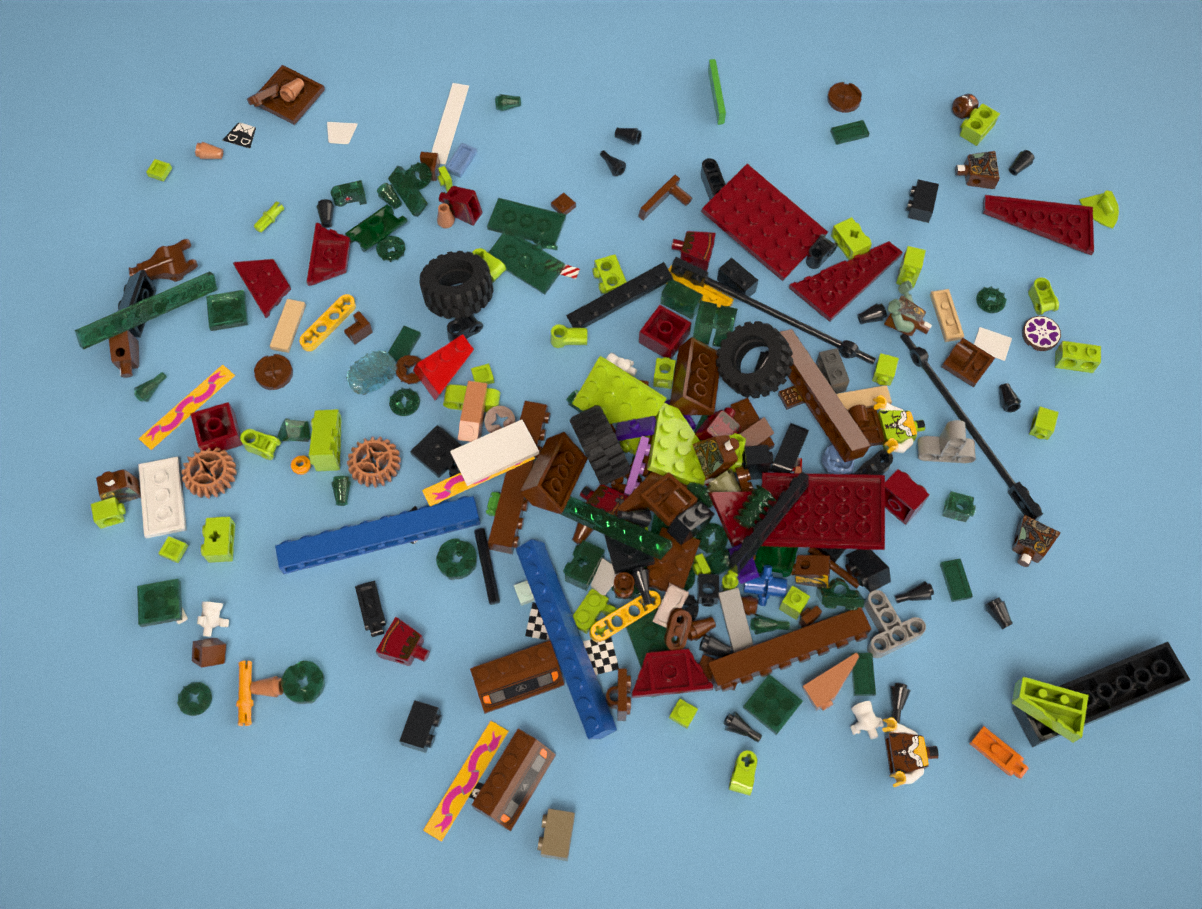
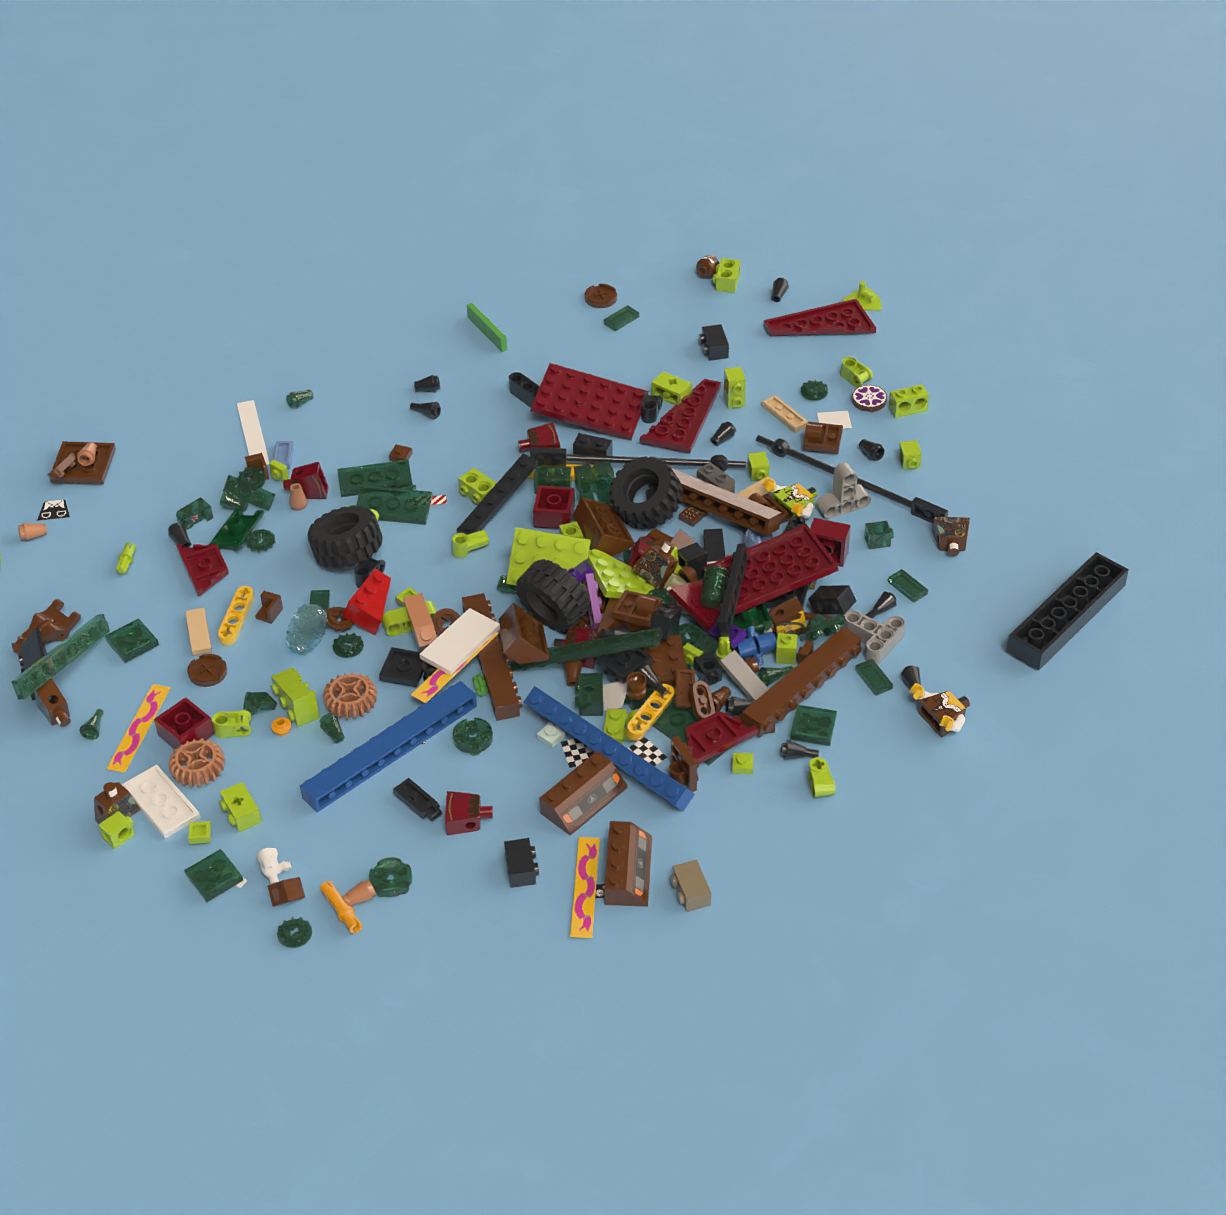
camera: 25 degrees left, 20 degrees down
(264, 282) = (152, 608): dark red wing -> none
(340, 132) = (151, 475): white sticker -> none
(487, 568) = (503, 731): black axle -> none
(668, 188) = (490, 408): reddish brown piece -> none
(826, 687) = (848, 695): nougat slope -> none
(866, 719) = (895, 702): white piece -> none
(906, 315) = (752, 422): torso -> none
(980, 170) = (749, 306): torso -> none
(999, 612) = (955, 591): black cone -> none
(999, 753) = (1015, 682): orange hinge -> none
(1053, 706) = (1034, 621): lime wedge -> none

